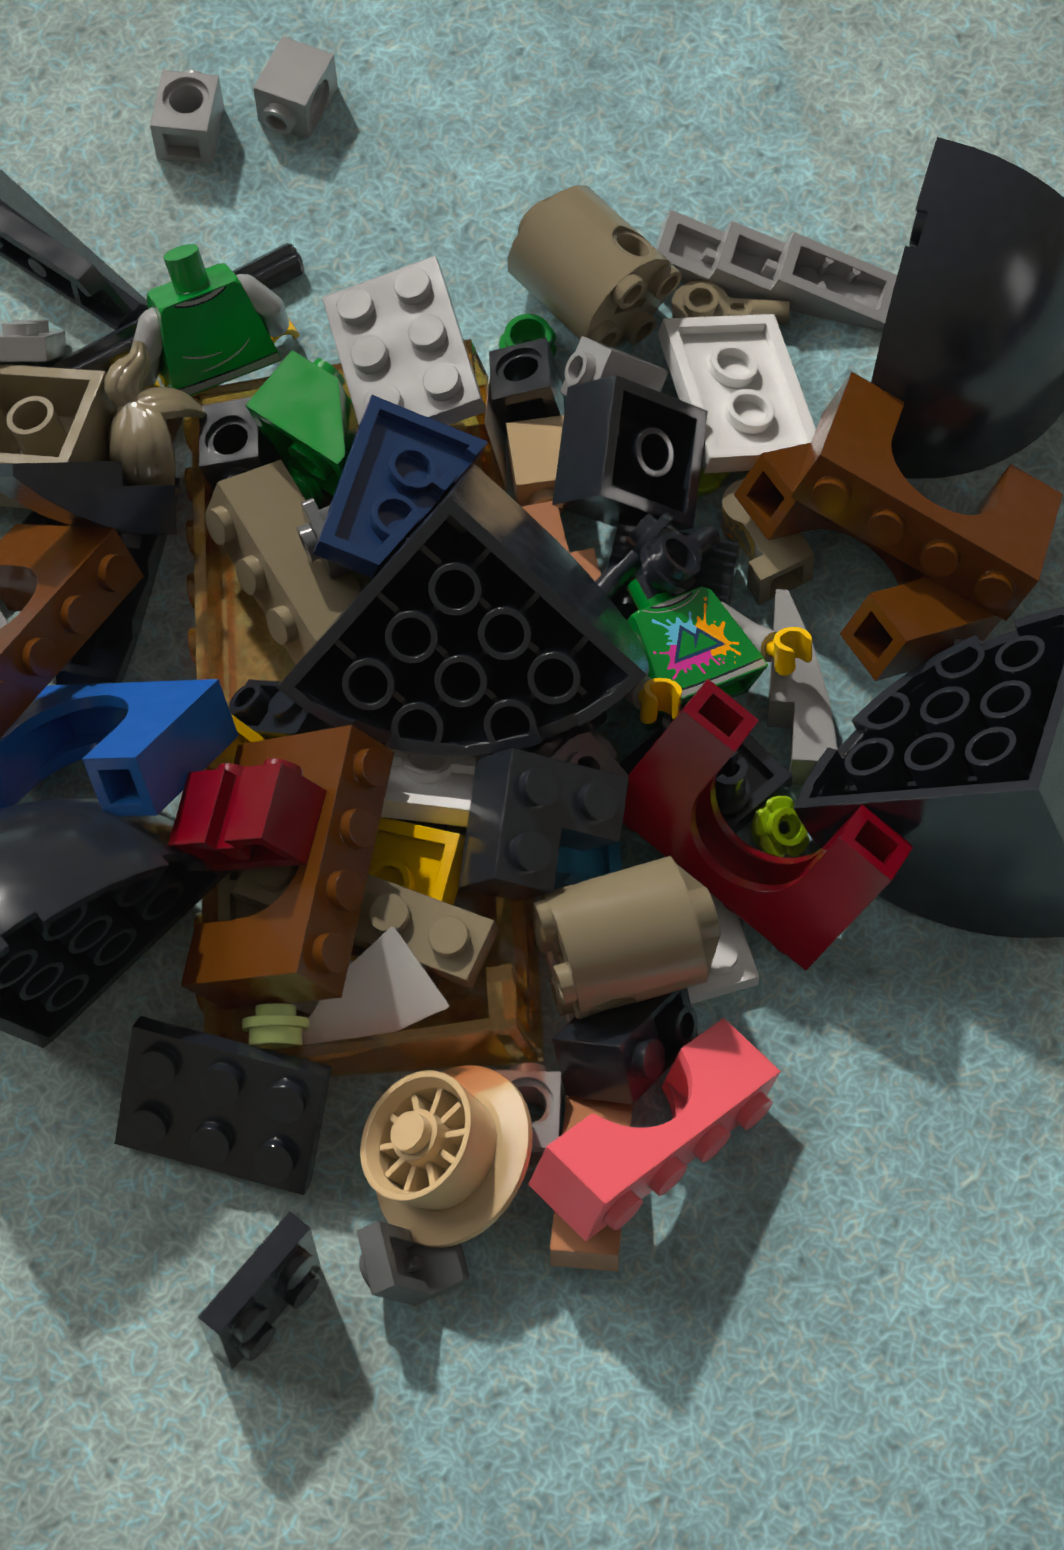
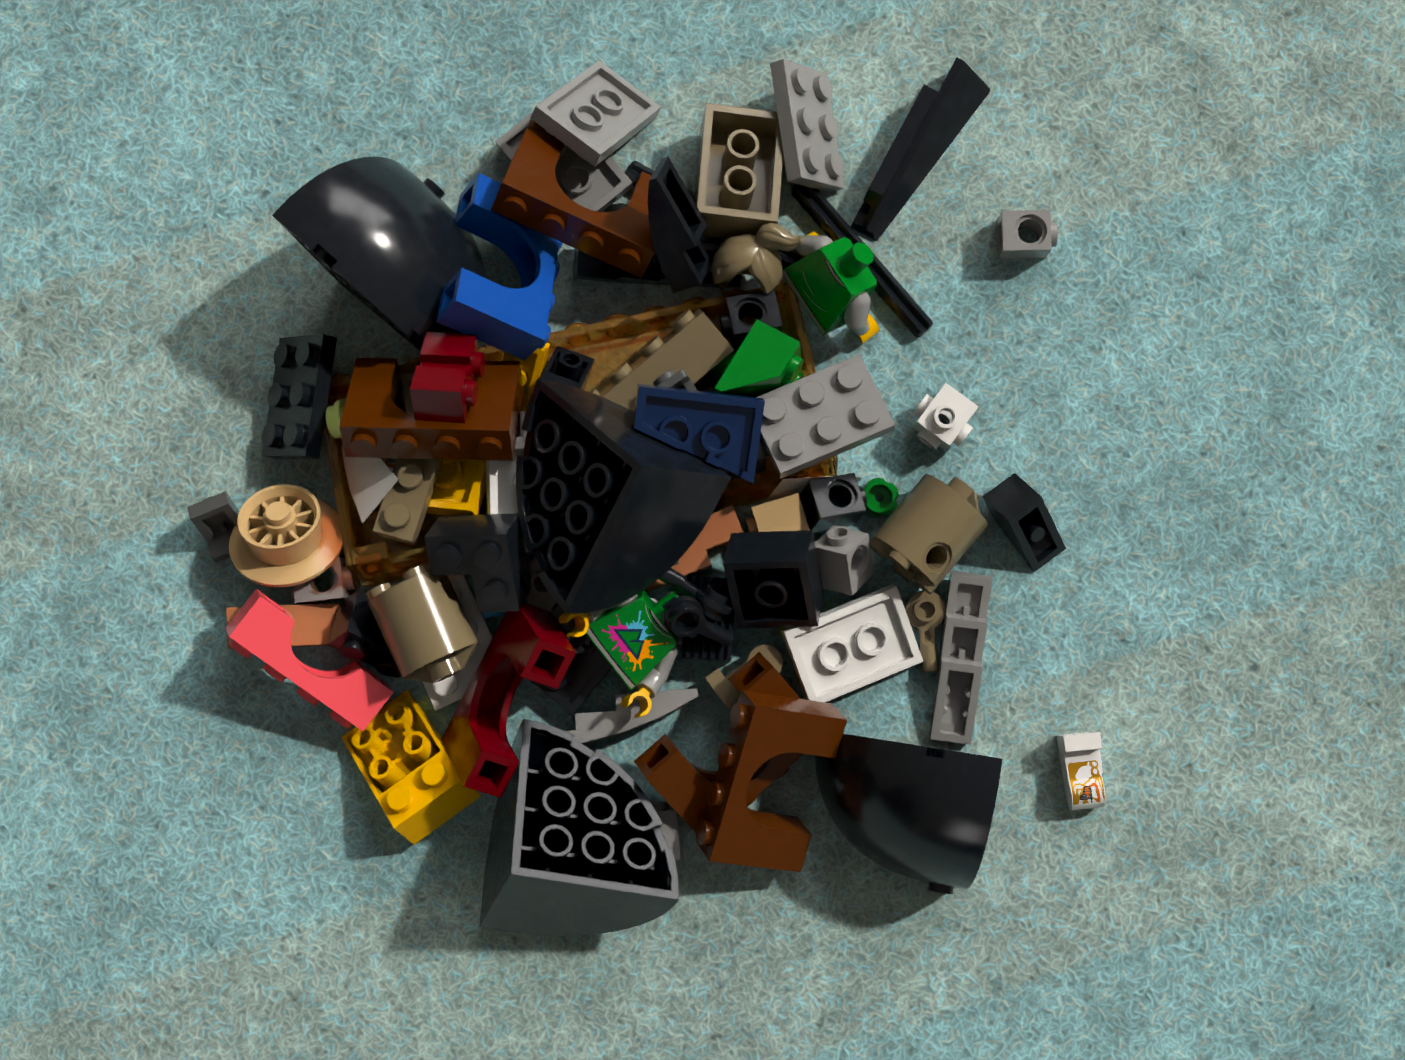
camera: 80 degrees right, 20 degrees up
(271, 1279) = (171, 438): black plate -> none
(295, 88) = (1058, 303): light grey brick -> none
(429, 227) = (951, 406): none -> white brick
(592, 156) = (1025, 521): none -> black slope
(766, 828) = (543, 705): lime plate -> none
(848, 1021) = (408, 768): none -> yellow slope
(920, 133) = (1082, 770): none -> white leg

